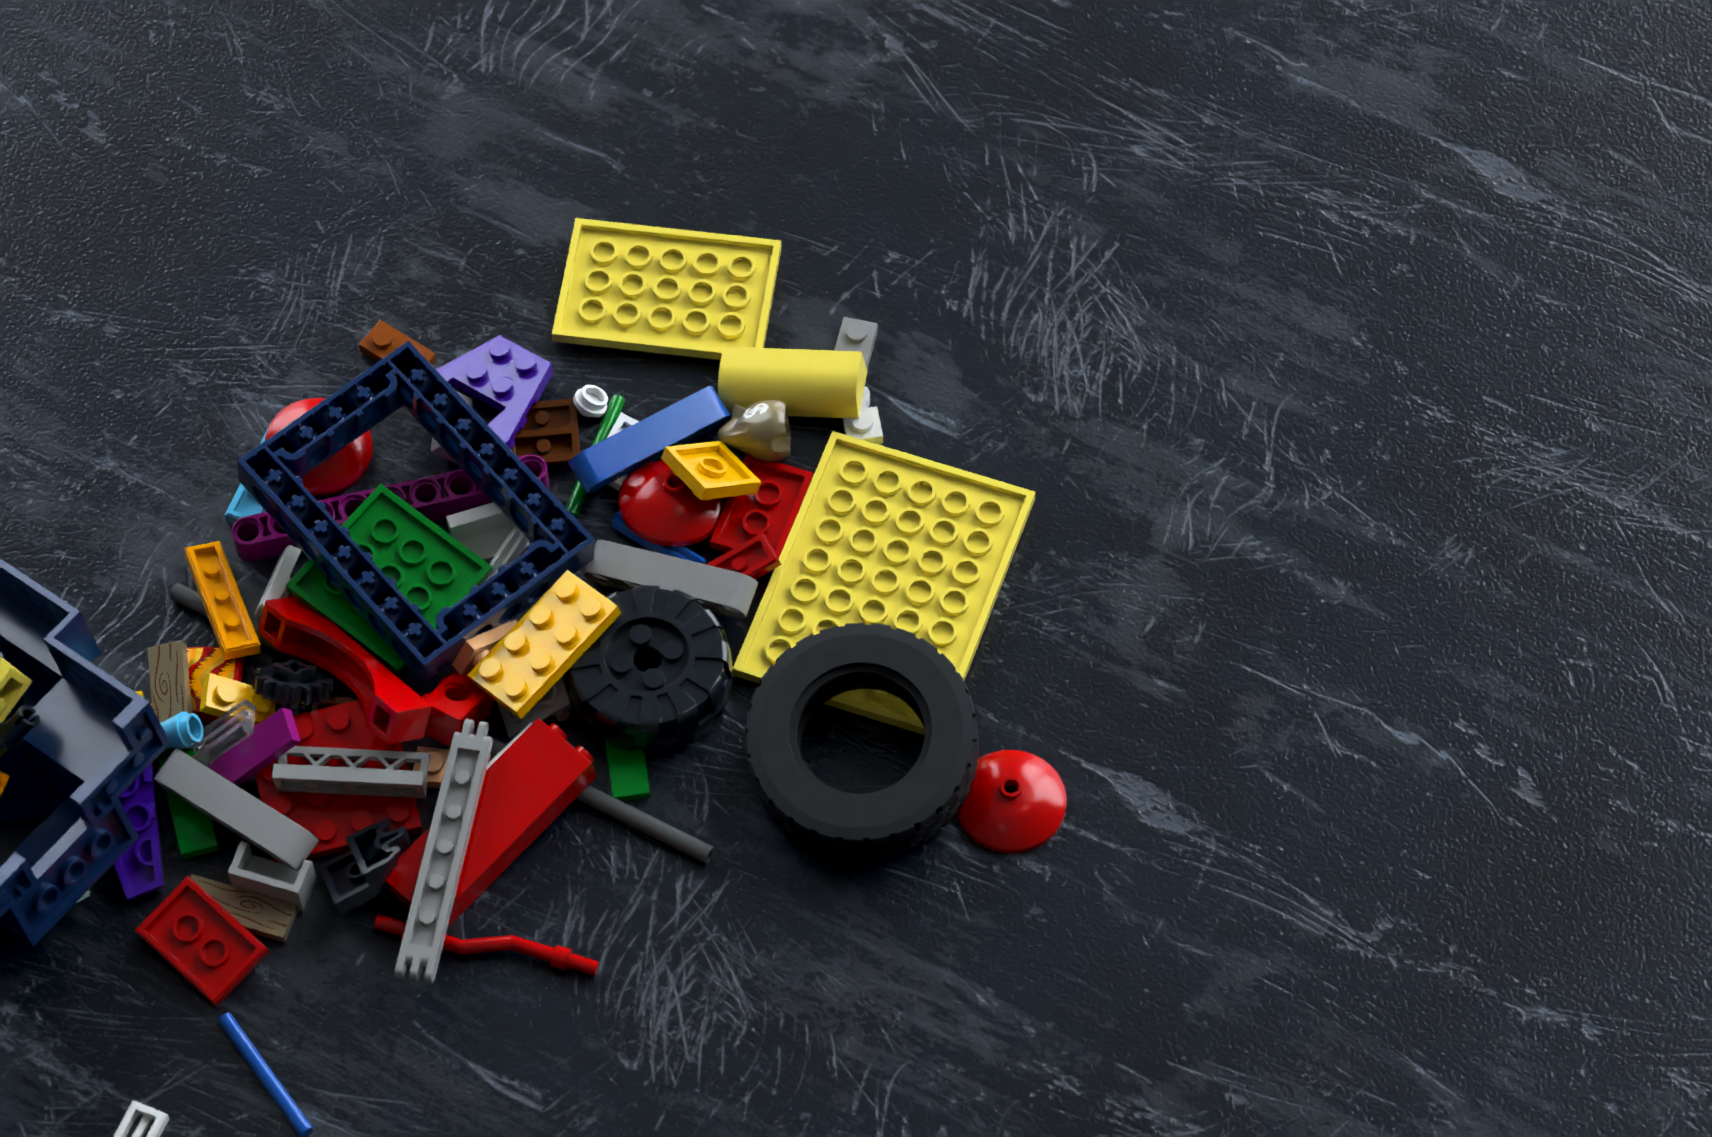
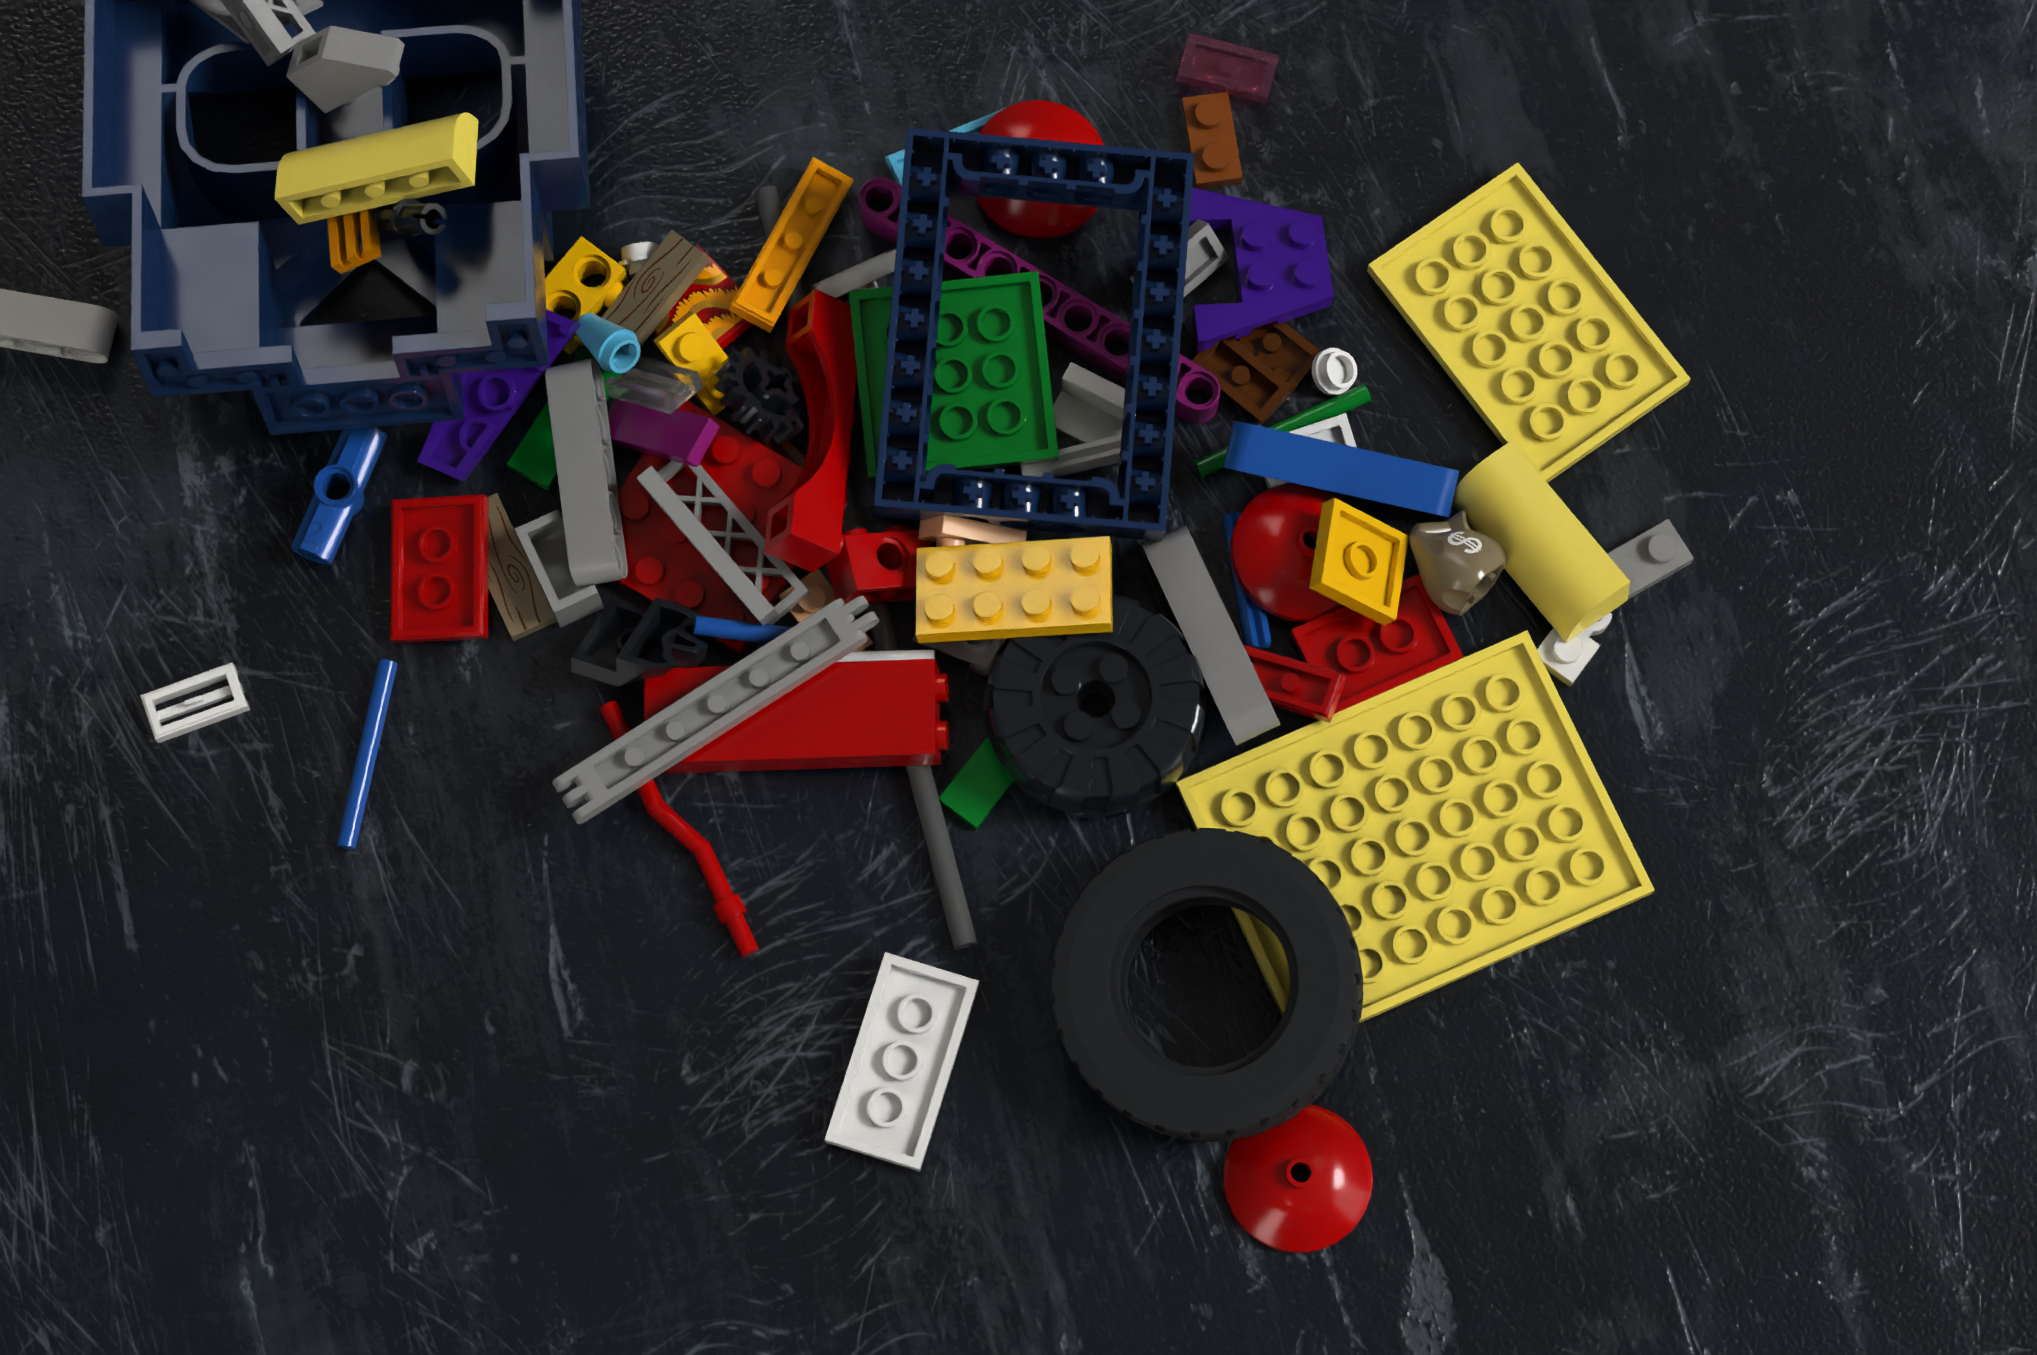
camera: 45 degrees right, 15 degrees up
(105, 973) = (329, 518): none -> blue piece
(140, 682) = (636, 255): none -> white plate
(367, 308) = (1228, 68): none -> clear pink plate
(412, 807) = (736, 629): none -> blue bar
(741, 941) = (902, 1061): none -> white plate

